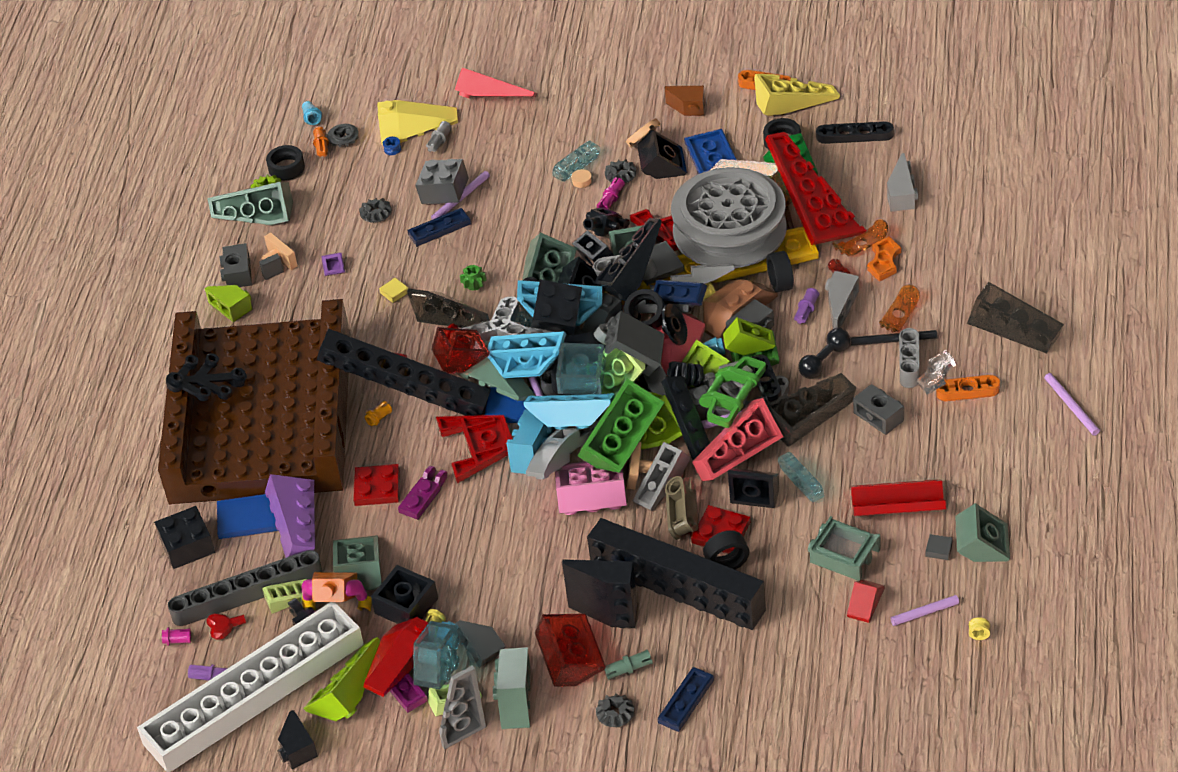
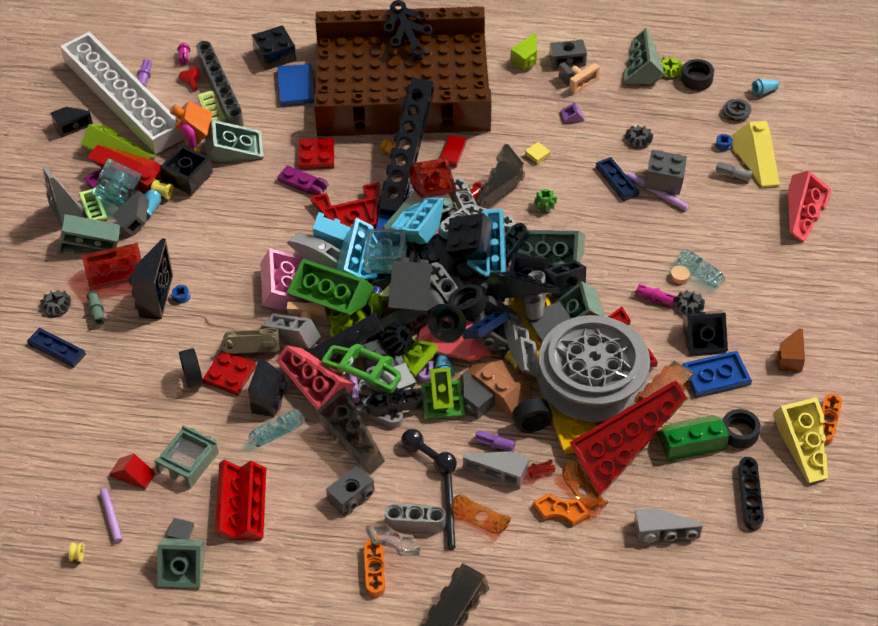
camera: 85 degrees right, 5 degrees up
(294, 512) = (279, 103): medium lavender wedge -> none
(320, 141) = (725, 95): orange axle -> none
(604, 220) = (612, 286): black piece -> none
(642, 132) = (734, 313): light nougat tile -> none
(681, 574) = (171, 334): black brick -> none

